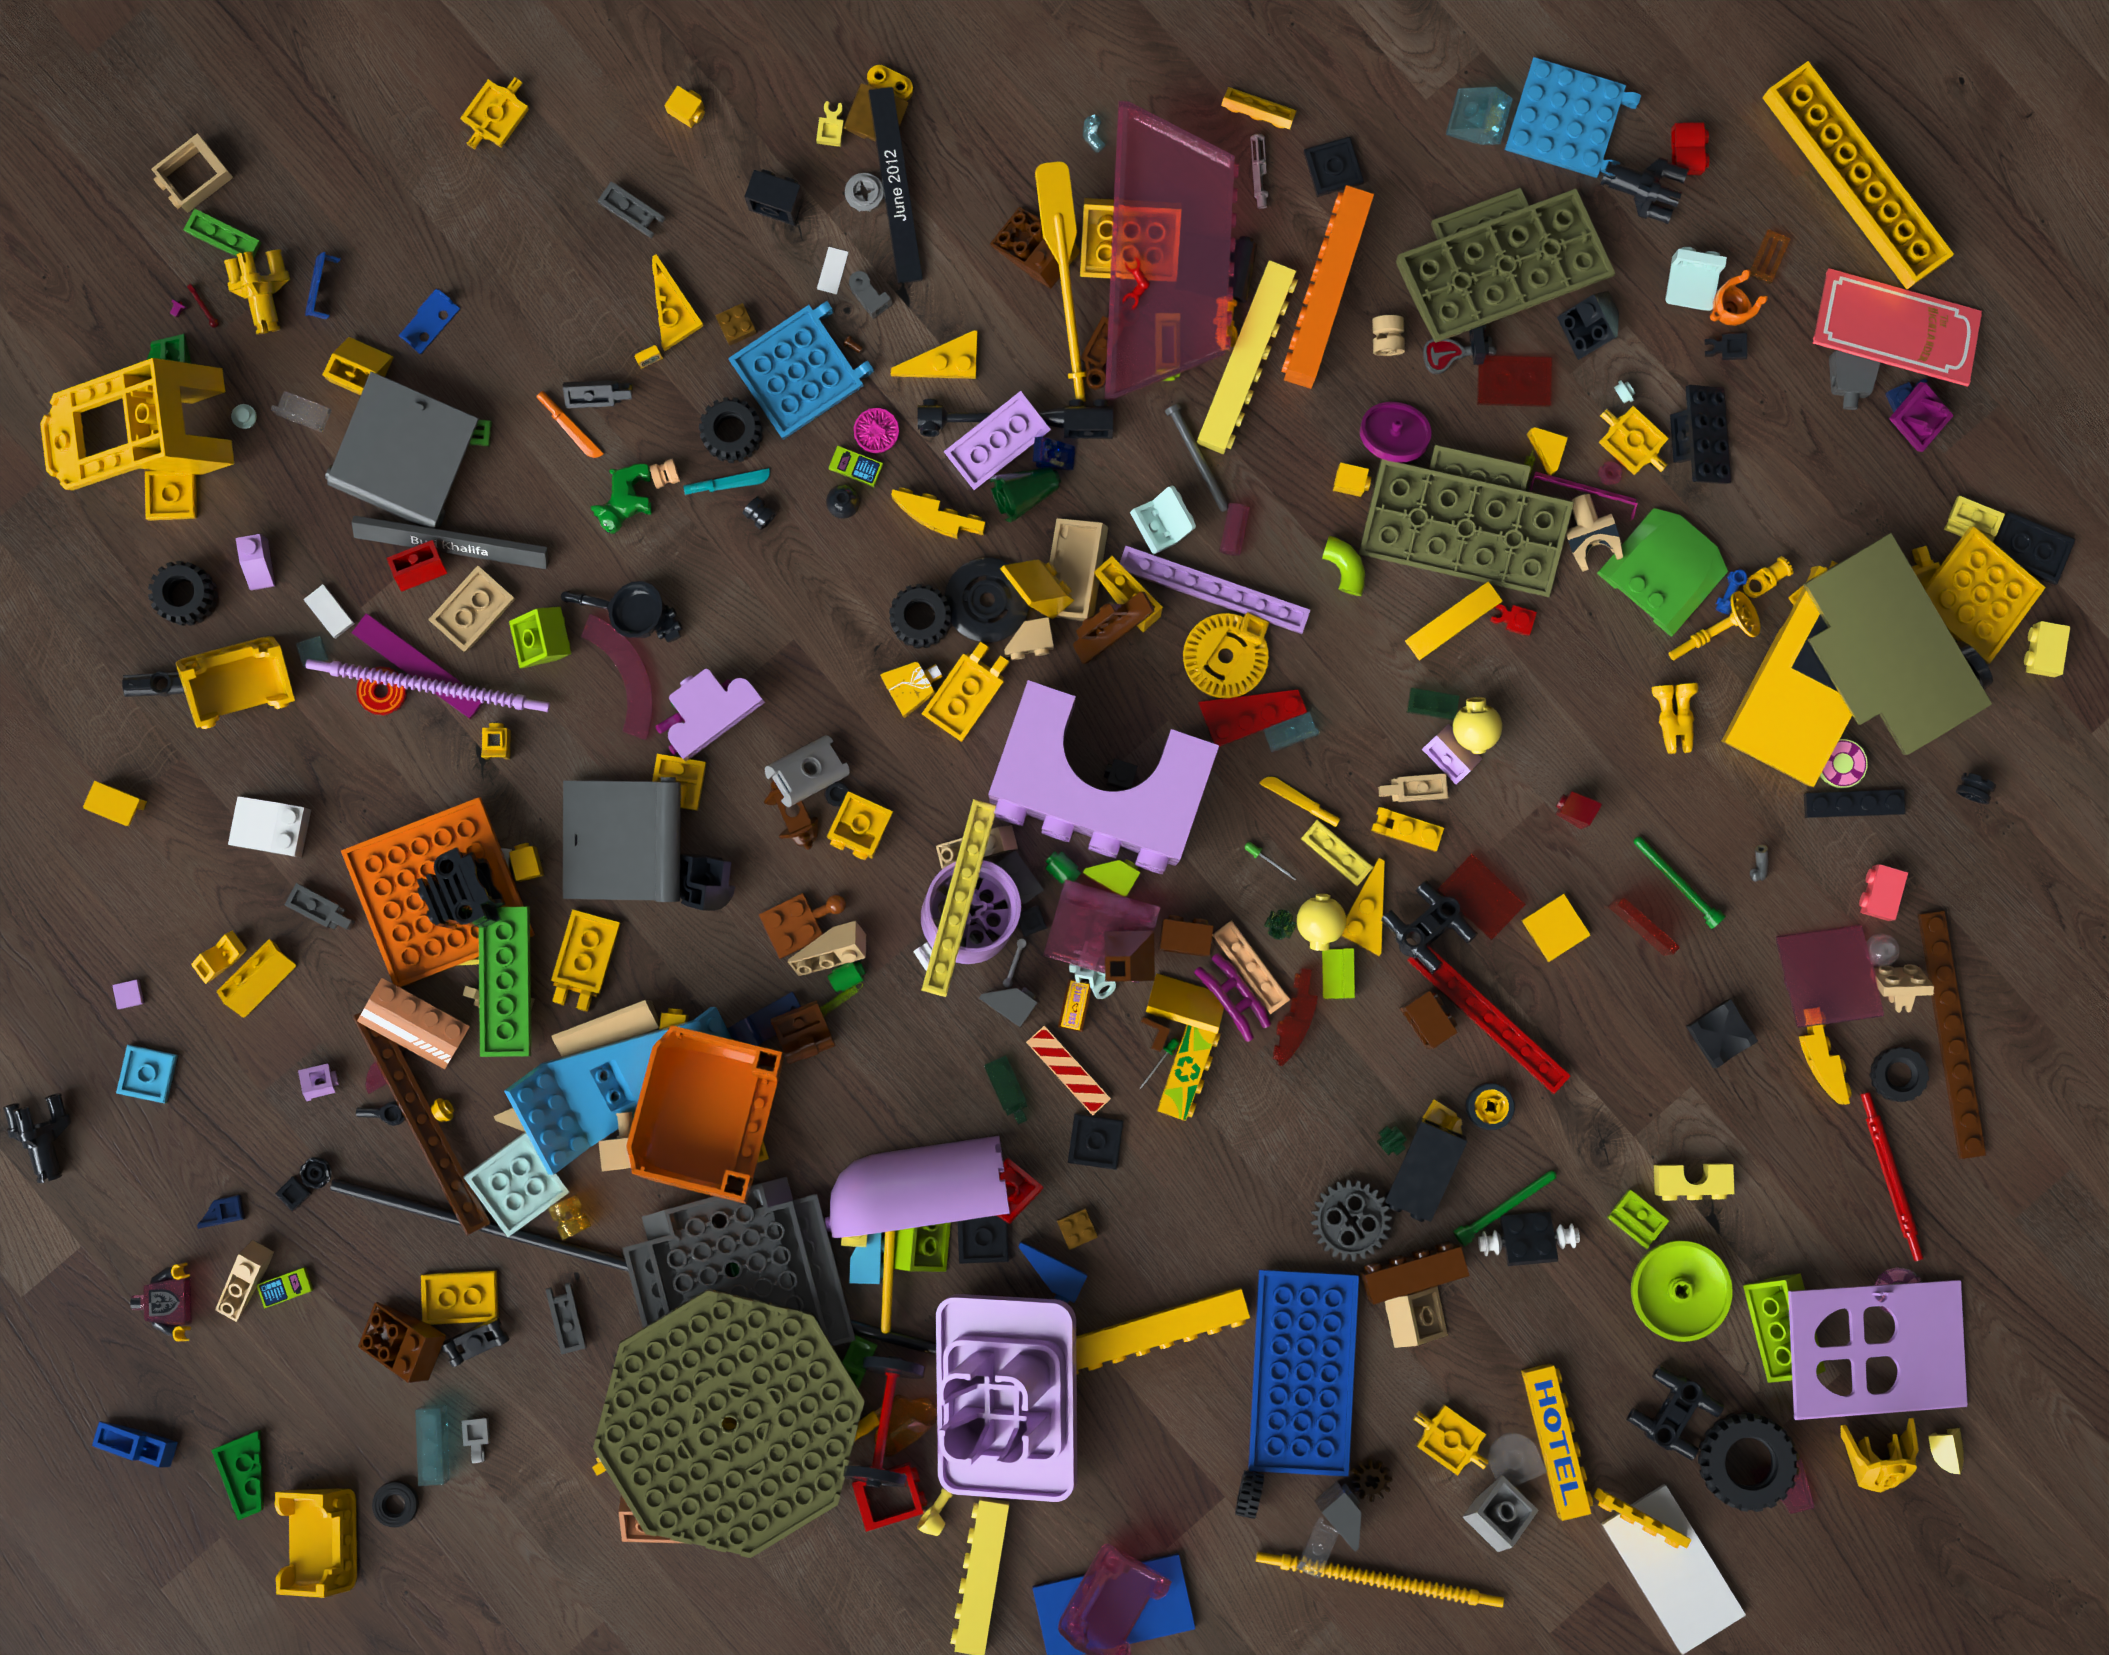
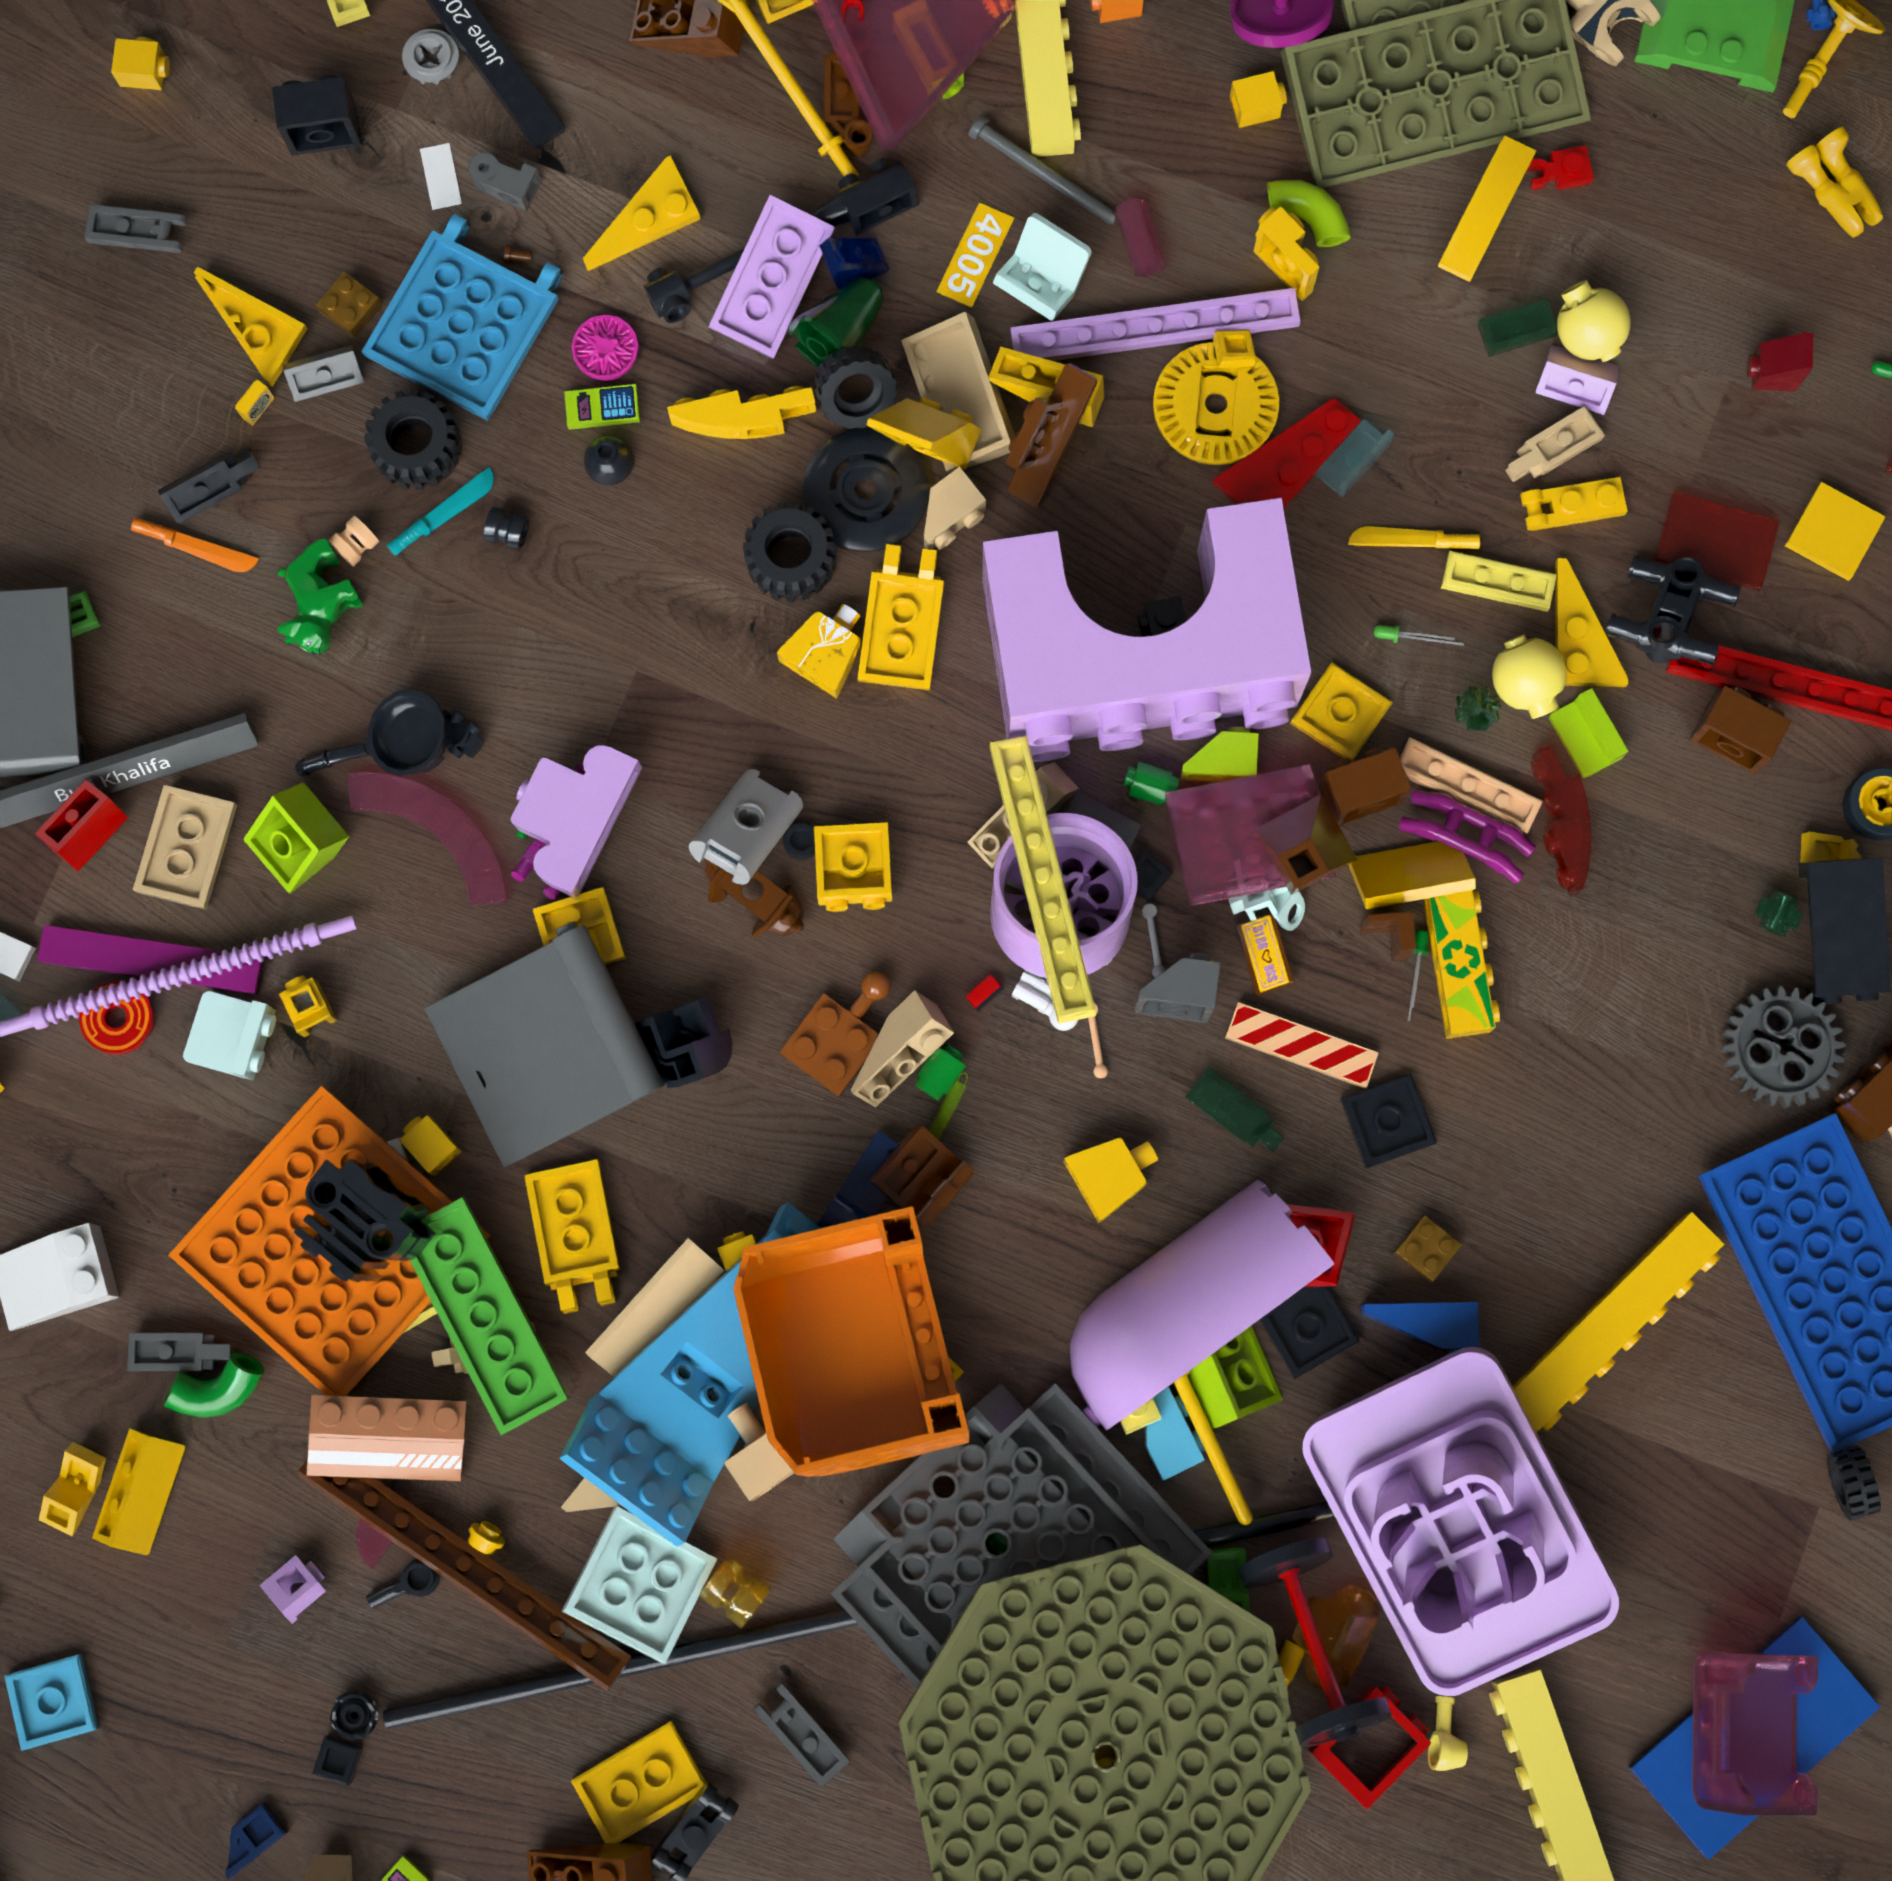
camera: 20 degrees left, 5 degrees down
(330, 946) = (216, 1395): none -> green cylinder
(442, 736) = (230, 1035): none -> light aqua bracket
(698, 359) = (323, 373): none -> plate
(898, 941) = (985, 992): none -> red piece
(914, 1088) = (1110, 1174): none -> yellow torso
(955, 984) = (1100, 1070): none -> light nougat hinge
(1007, 550) = (847, 363): none -> black tyre
(1130, 487) = (975, 254): none -> yellow sticker
(1199, 883) = (1341, 712): none -> yellow tile
(1315, 580) = (1279, 247): none -> yellow plate

